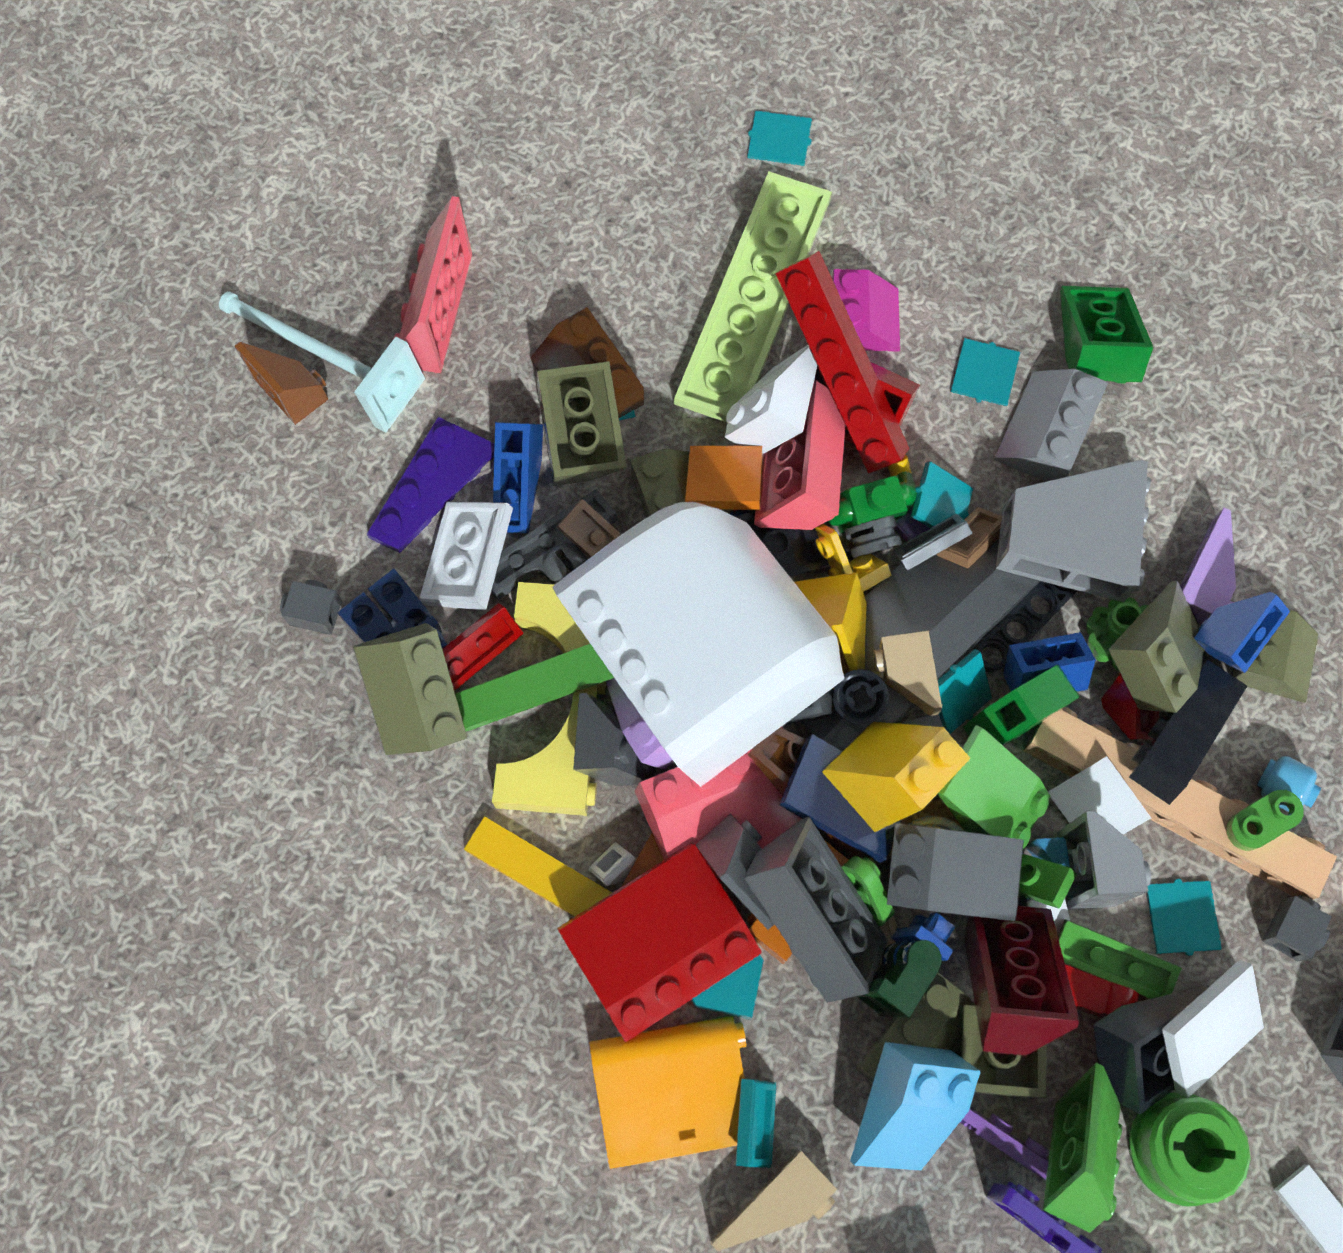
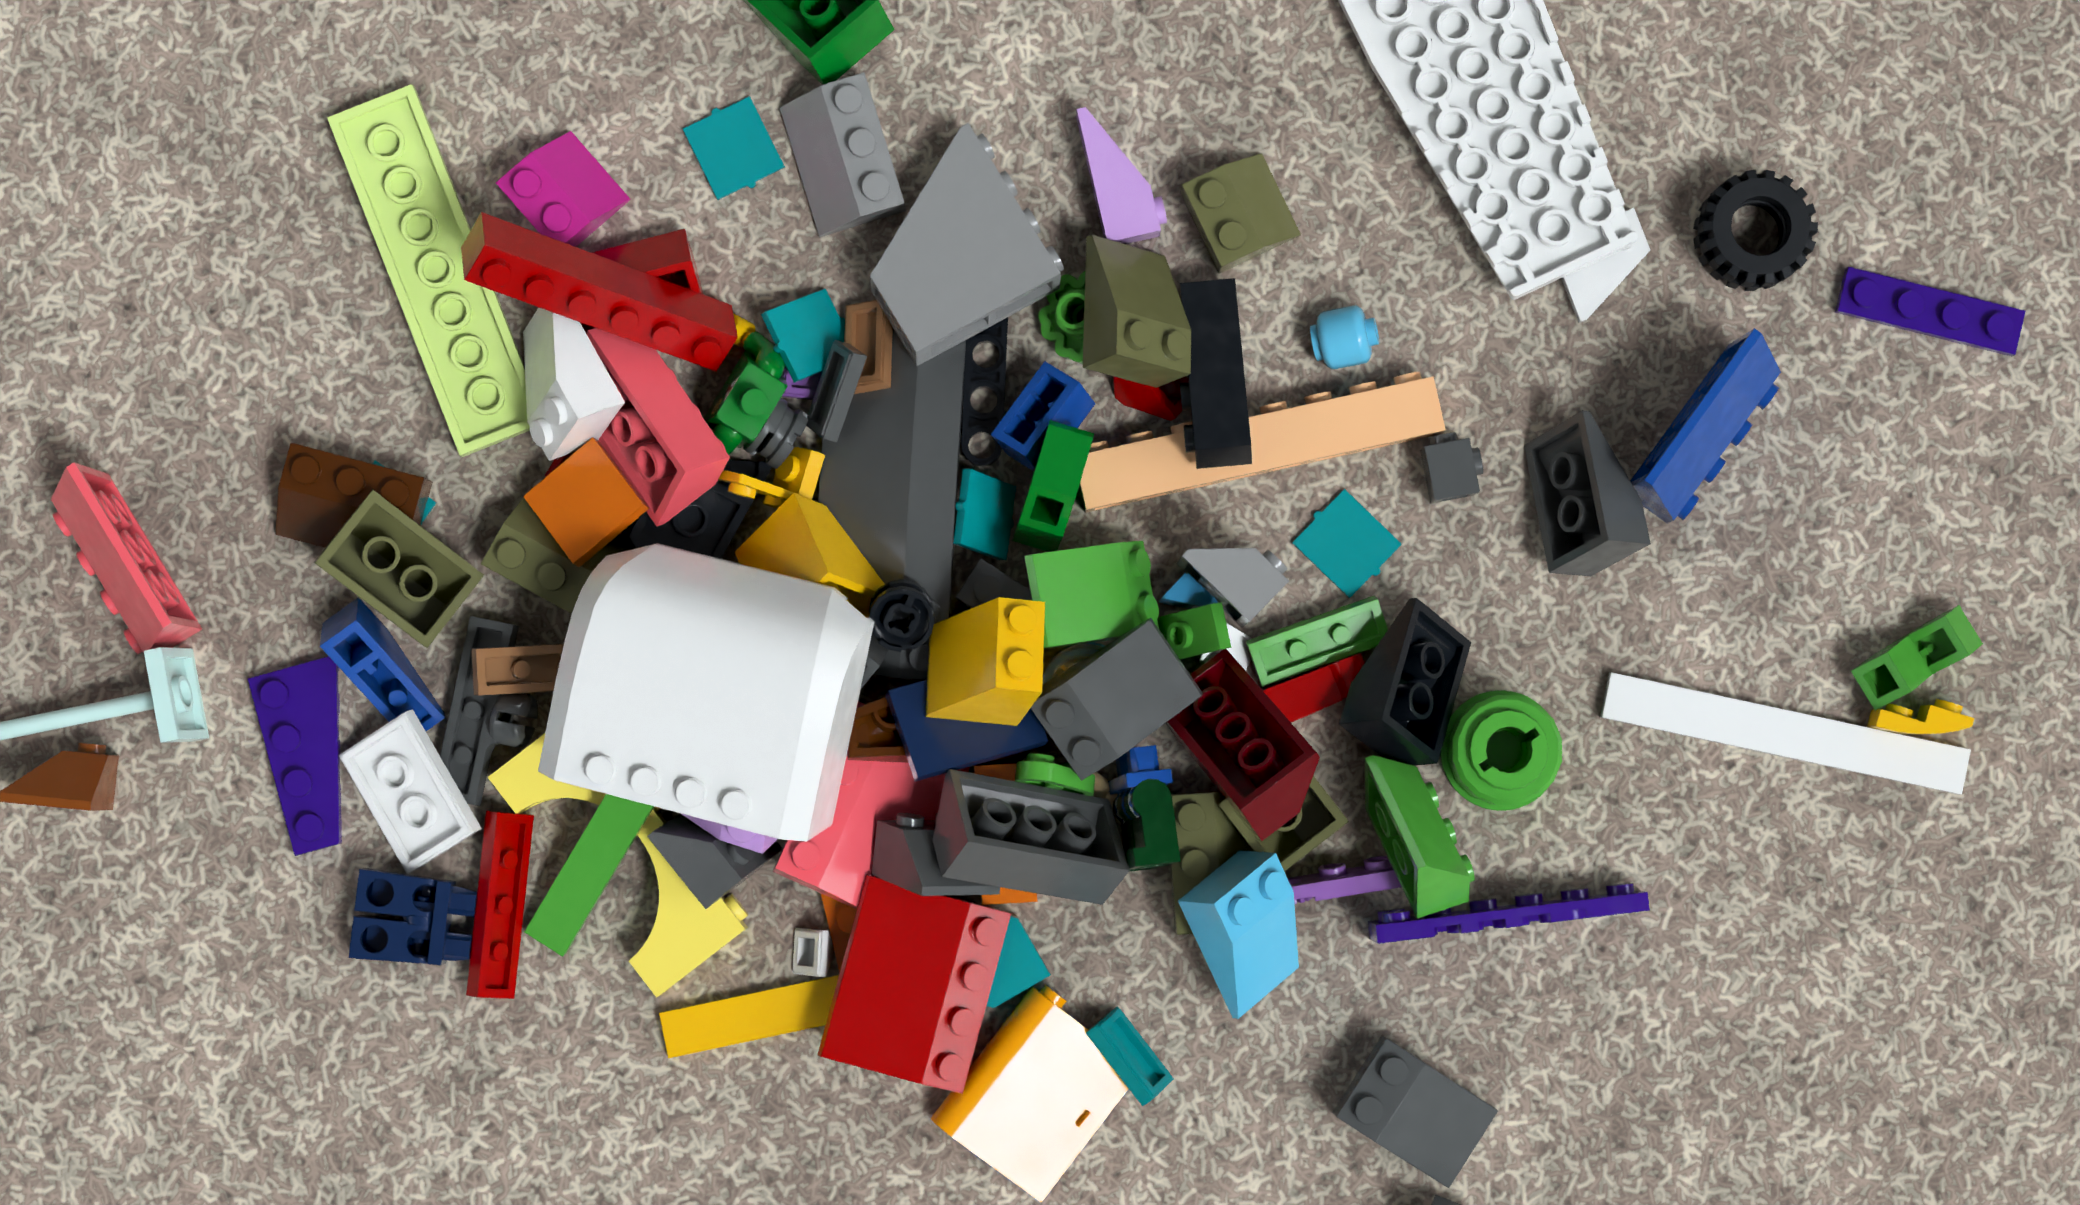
camera: 45 degrees left, 15 degrees up
(311, 606) = (313, 971): dark grey brick -> none
(410, 691) = (490, 969): olive slope -> none
(779, 138) = (299, 59): teal piece -> none
(784, 1201) = (1207, 1094): tan slope -> none
(910, 669) = (922, 550): tan slope -> none
(1102, 791) = (1191, 510): white sticker -> none
(1213, 1028) = (1442, 632): white tile -> none
(1242, 629) = (1187, 235): blue slope -> none
(1267, 819) = (1346, 400): bright green plate -> none

